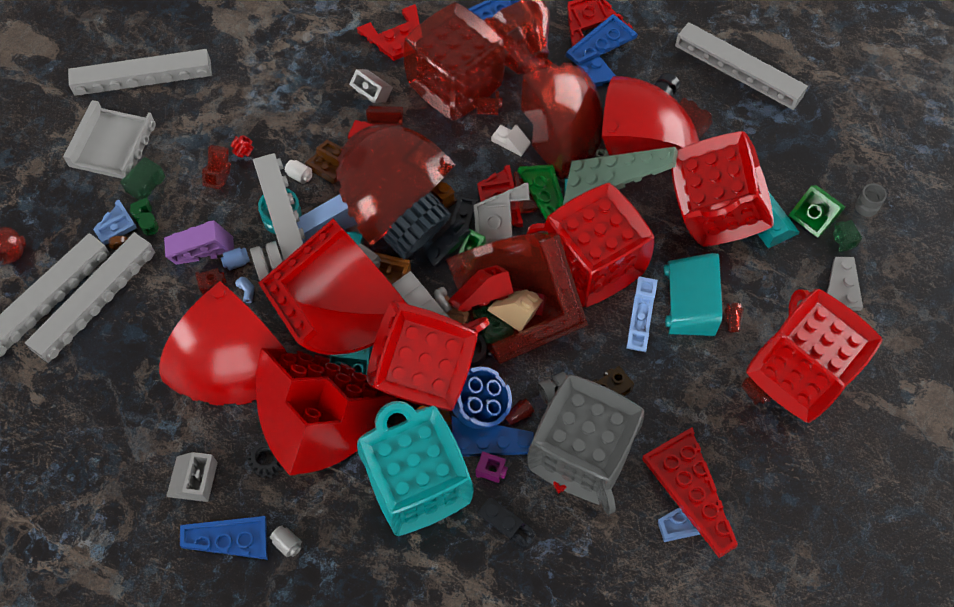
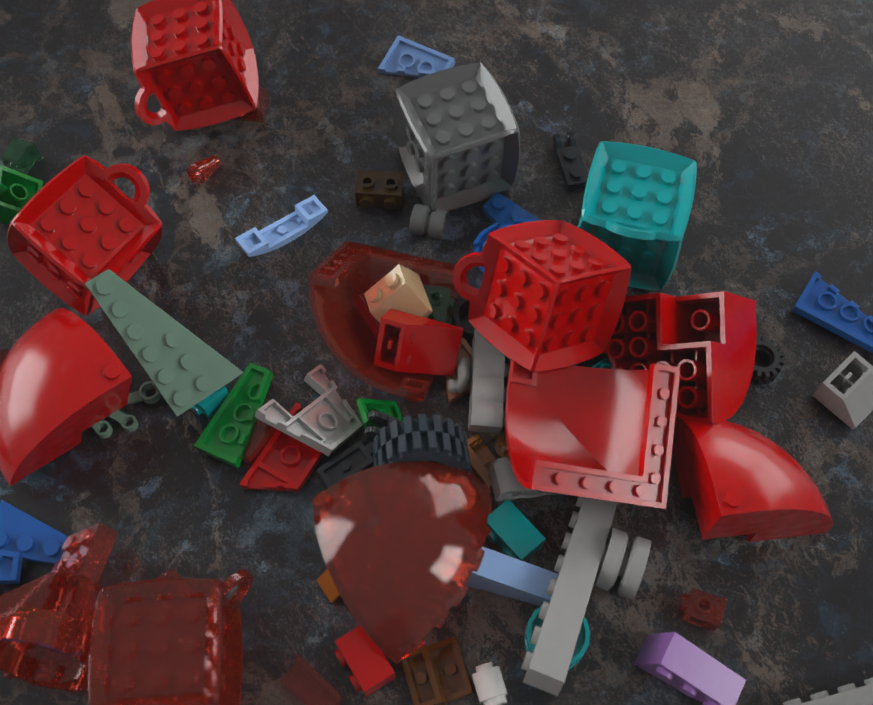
camera: 140 degrees left, 0 degrees up
(235, 258) = (654, 617): medium blue brick -> none
(248, 287) = (661, 570): light blue arm -> none
(286, 541) = (786, 273): light grey brick -> none
(491, 461) = (548, 202): magenta brick -> none
(511, 139) = (202, 523): white slope -> none
(519, 411) = (473, 228): clear red cone -> none
(564, 114) = (124, 469): clear red brick -> none
(602, 241) = (255, 289): red piece -> none
(689, 482) = (392, 69): red wing -> none
(694, 295) = (212, 203): teal windscreen -> none
(845, 283) = (81, 125): light grey wing -> none

